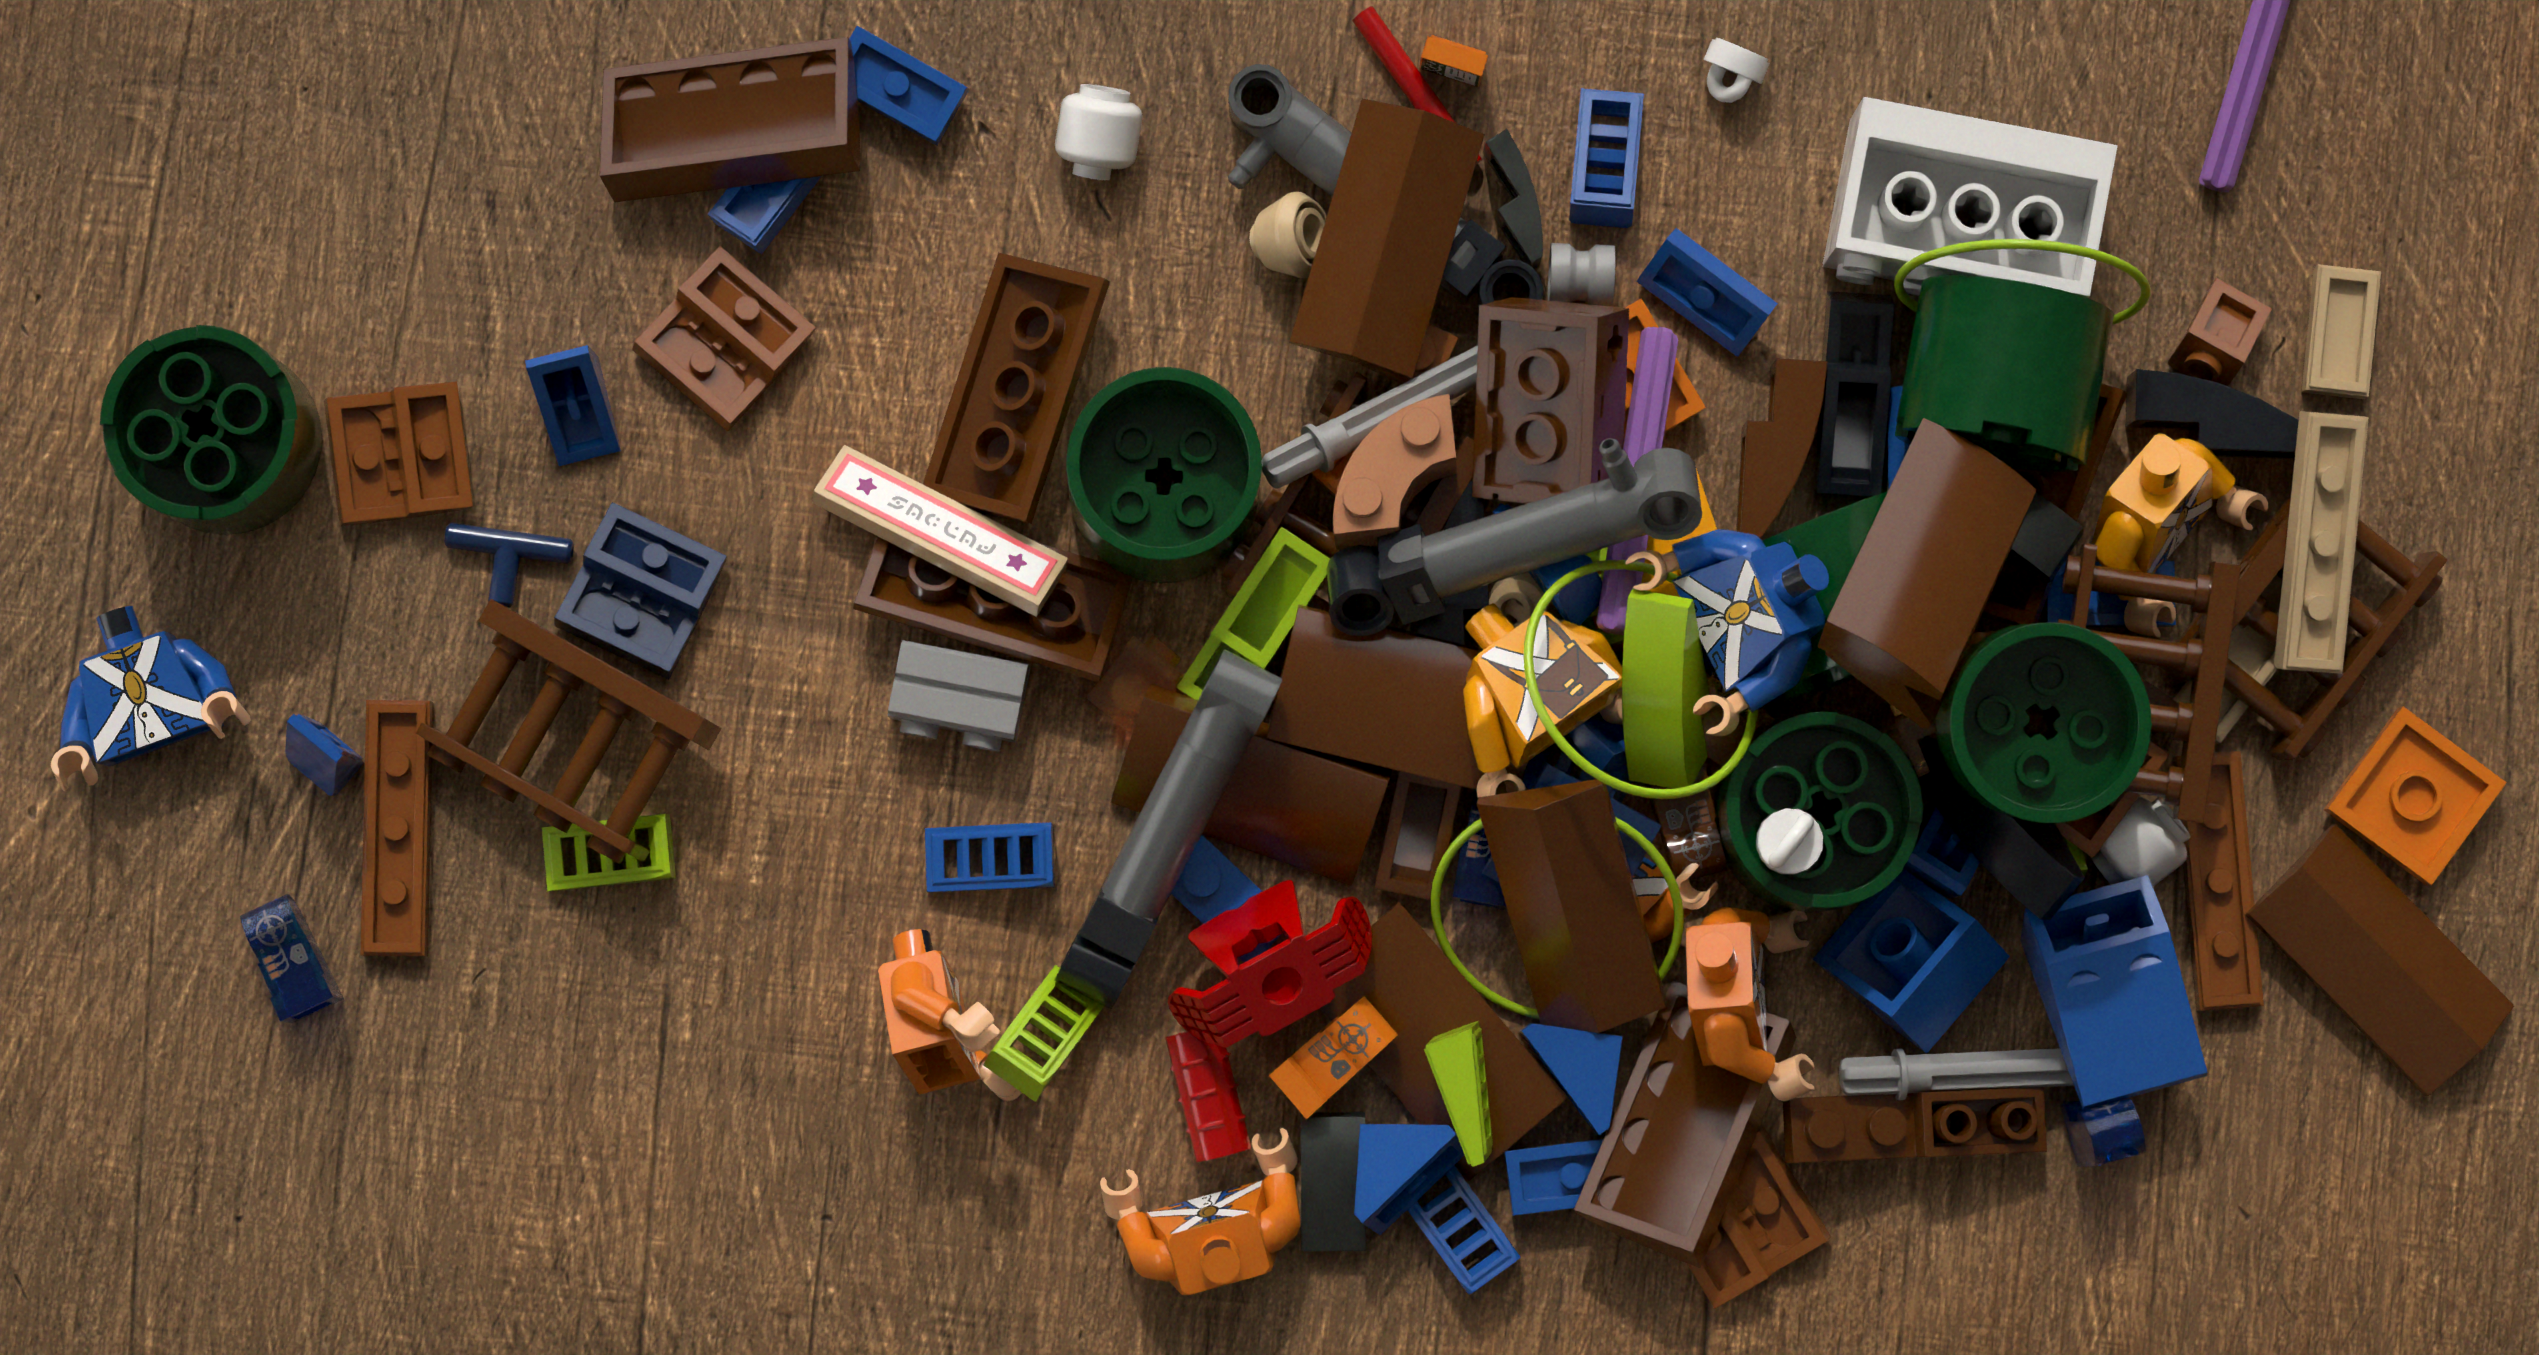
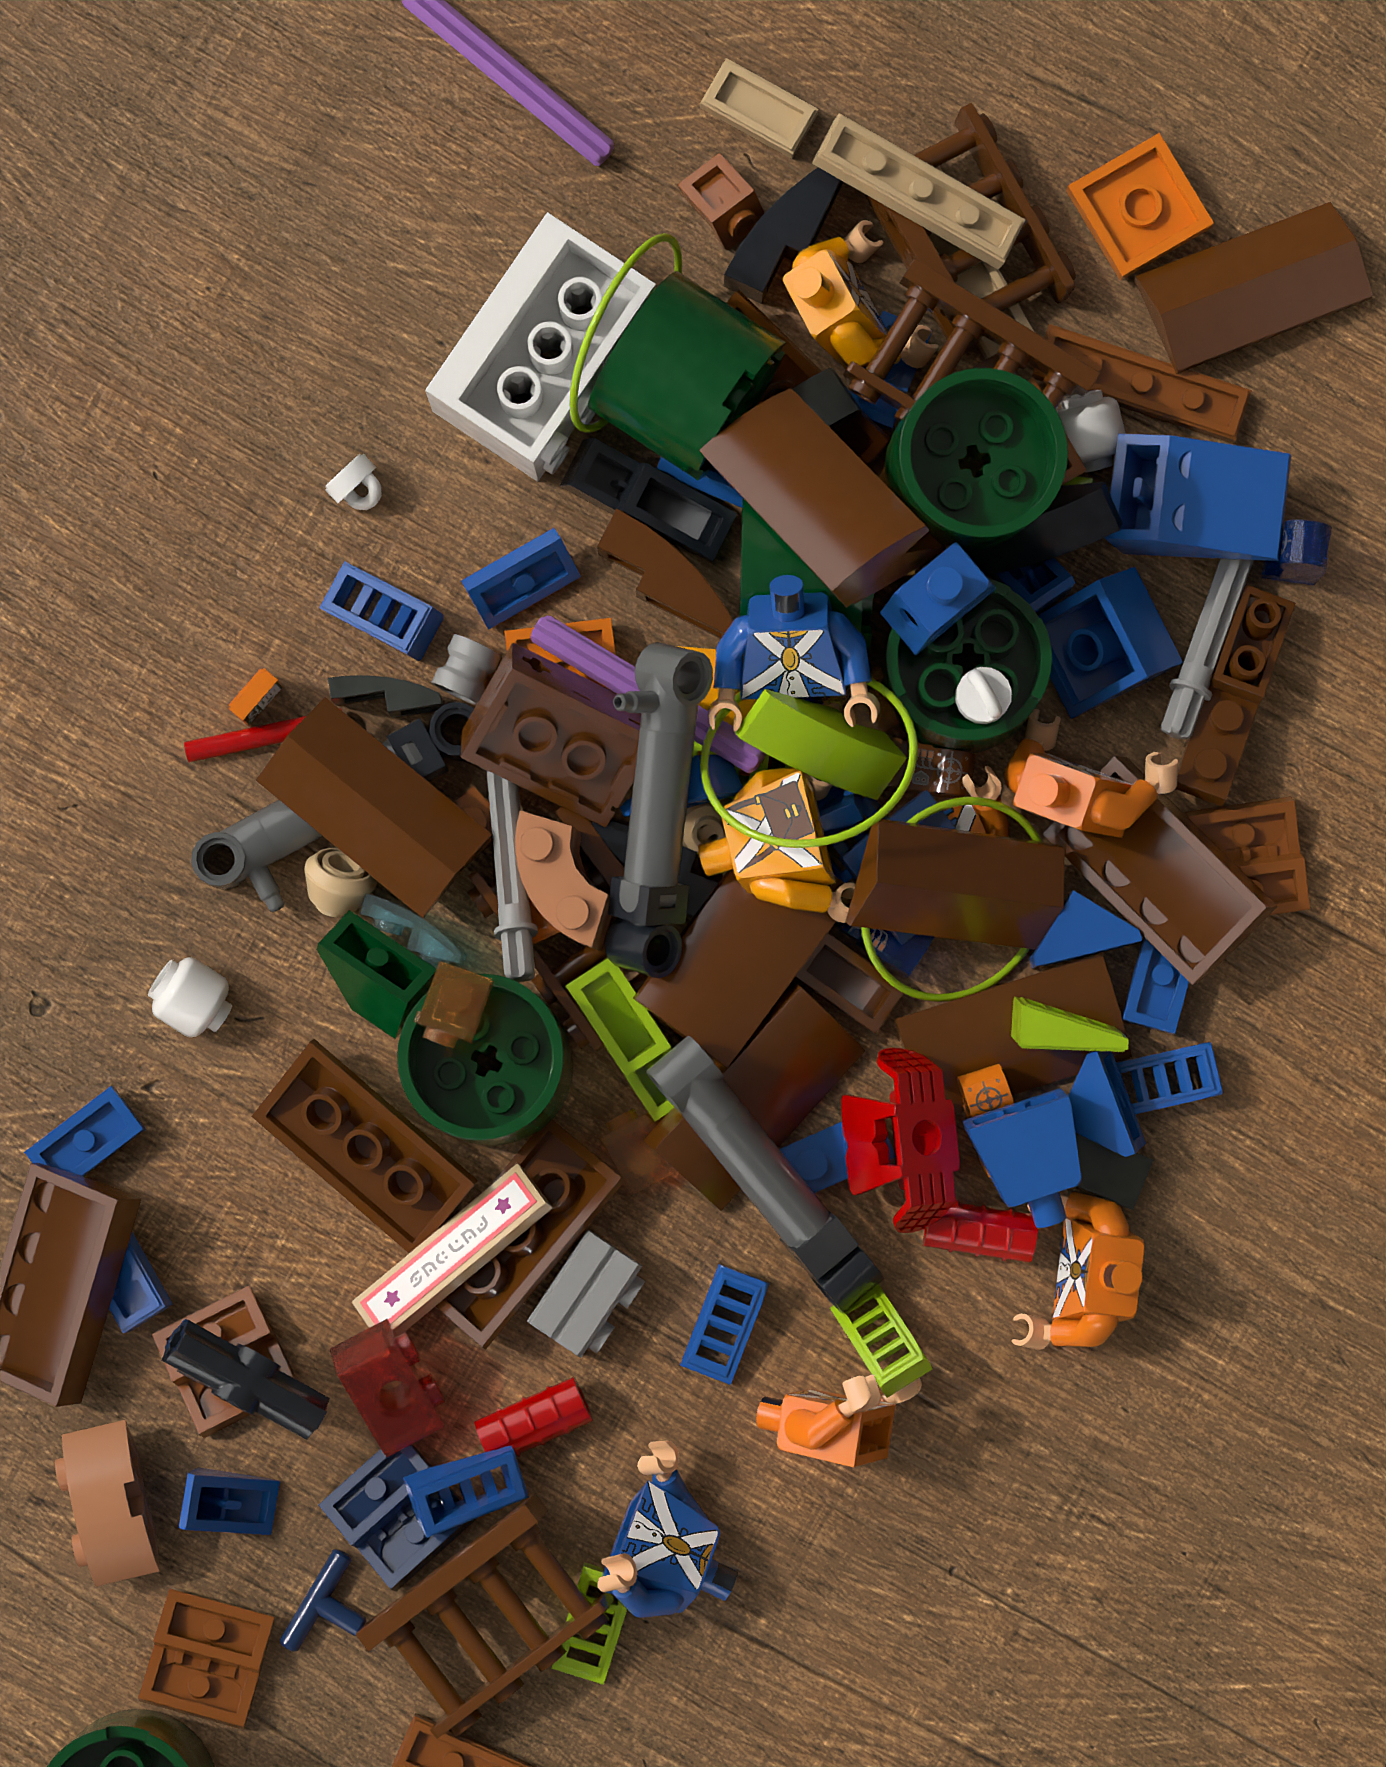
camera: 65 degrees left, 0 degrees up
(520, 276) = (108, 1503): none -> nougat brick
(662, 649) = (453, 1513): none -> blue slope
(712, 362) = (245, 1379): none -> black piece
(723, 890) = (664, 1545): none -> torso
(743, 544) = (396, 1414): none -> clear red brick
(798, 694) = (535, 1418): none -> red axle
(1206, 410) = (453, 1005): none -> clear orange bracket
(1209, 315) = (375, 972): none -> dark green slope
(1271, 356) = (425, 936): none -> clear light blue slope
(1312, 1106) = (1030, 1153): none -> blue torso
(1875, 745) = (937, 597): none -> blue torso

